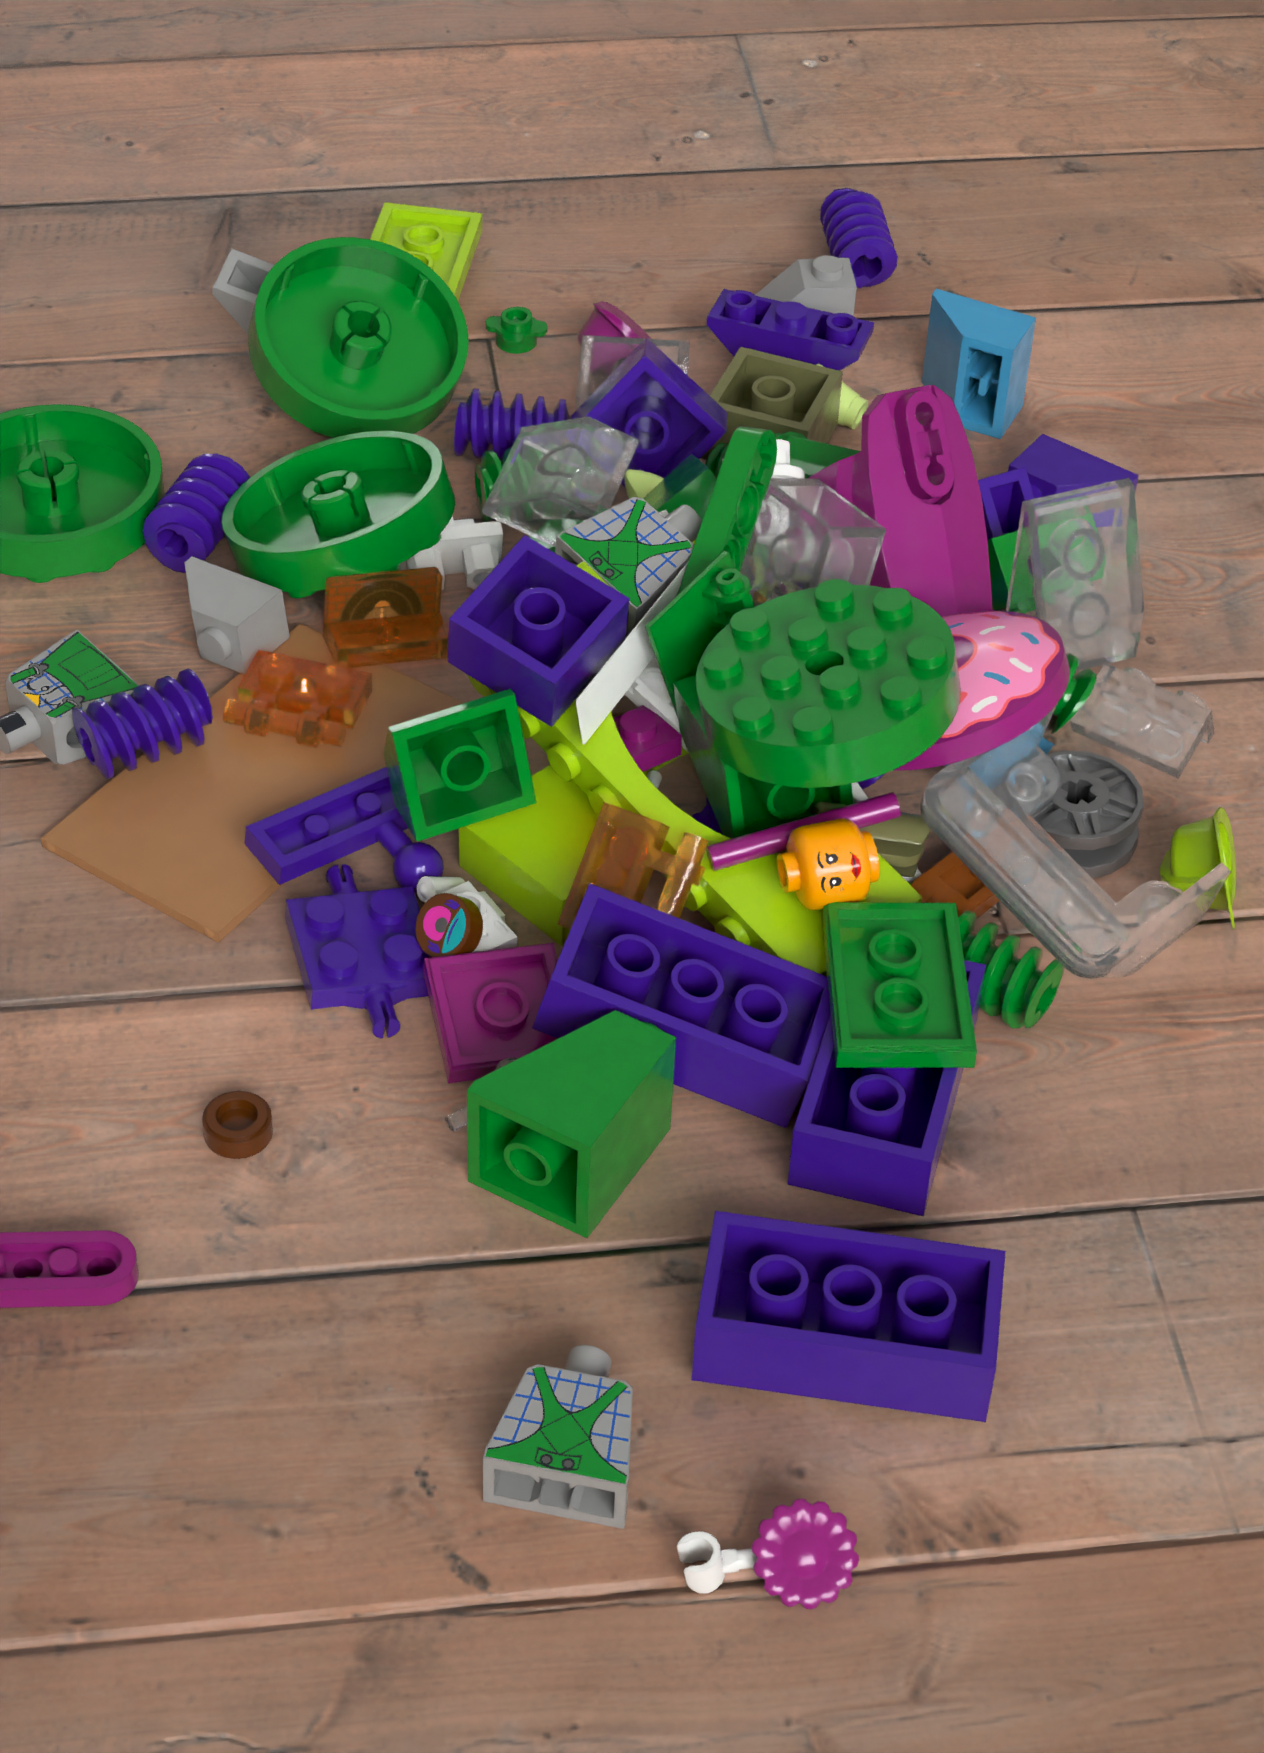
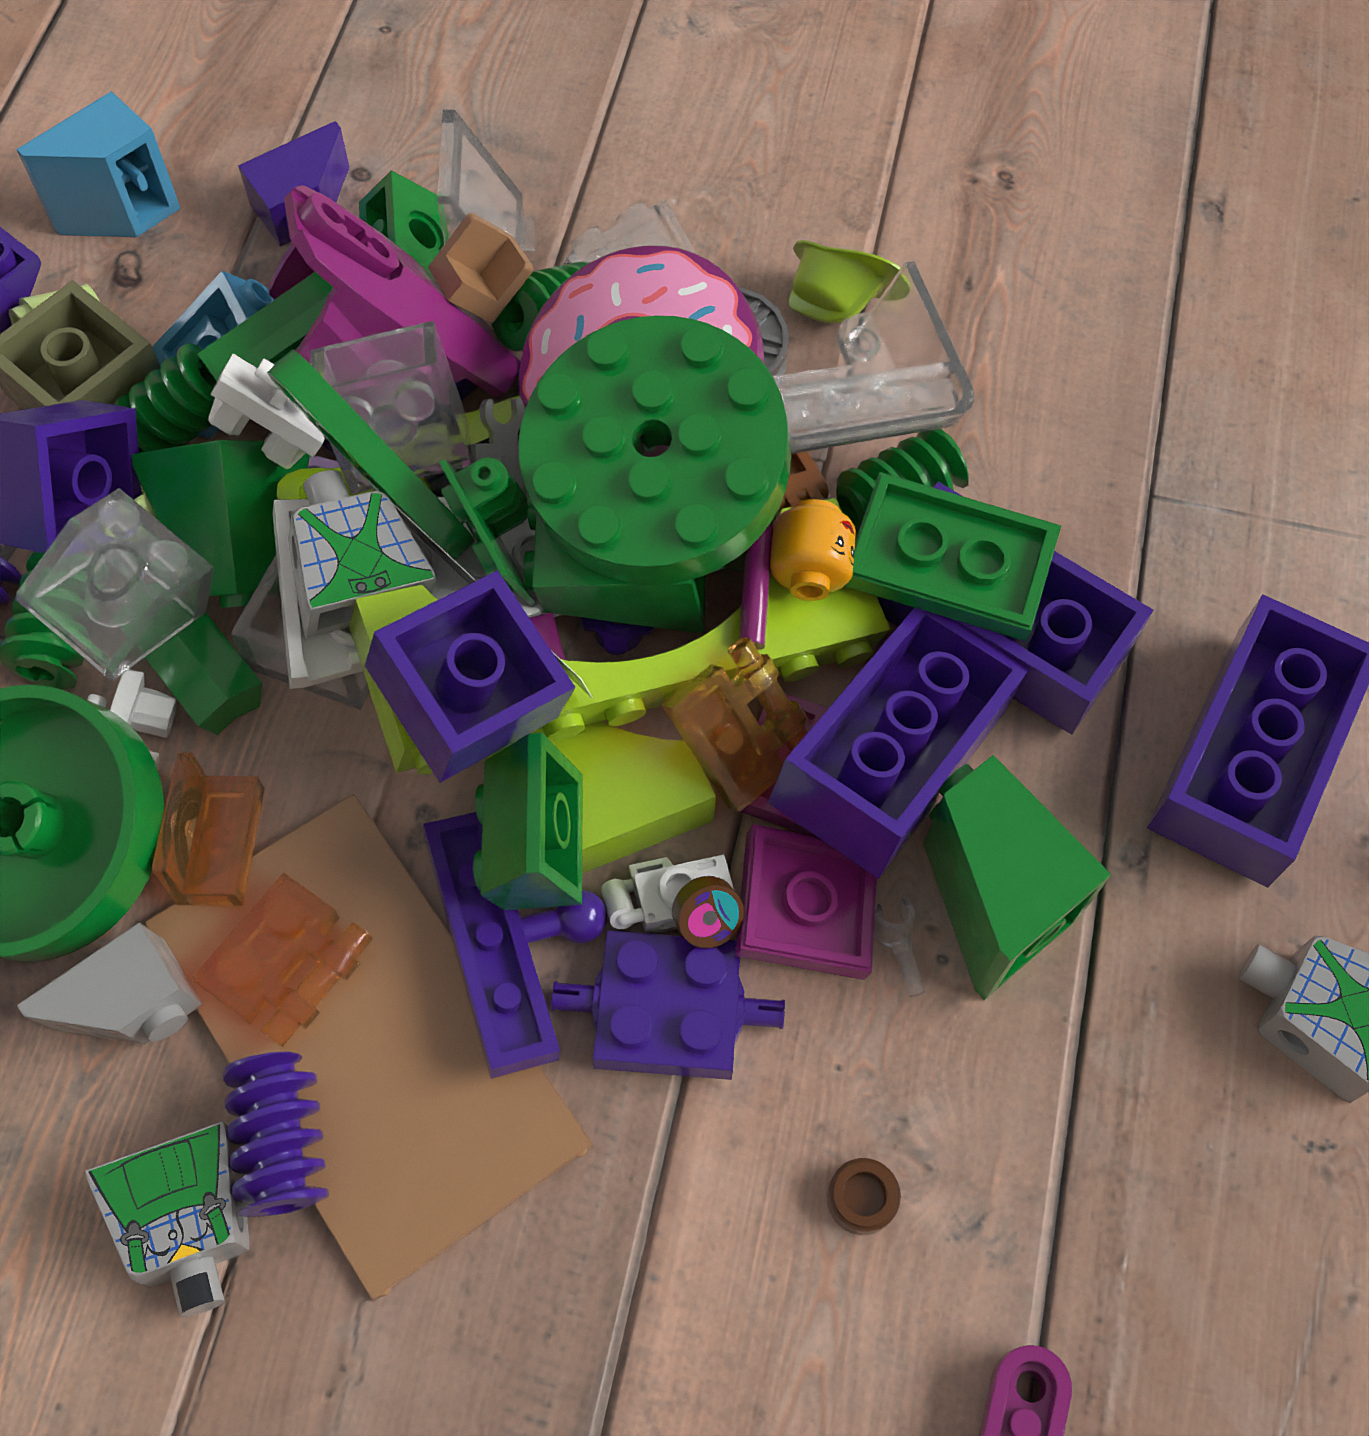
camera: 70 degrees left, 20 degrees up
(1002, 575) = (480, 268): none -> medium nougat panel

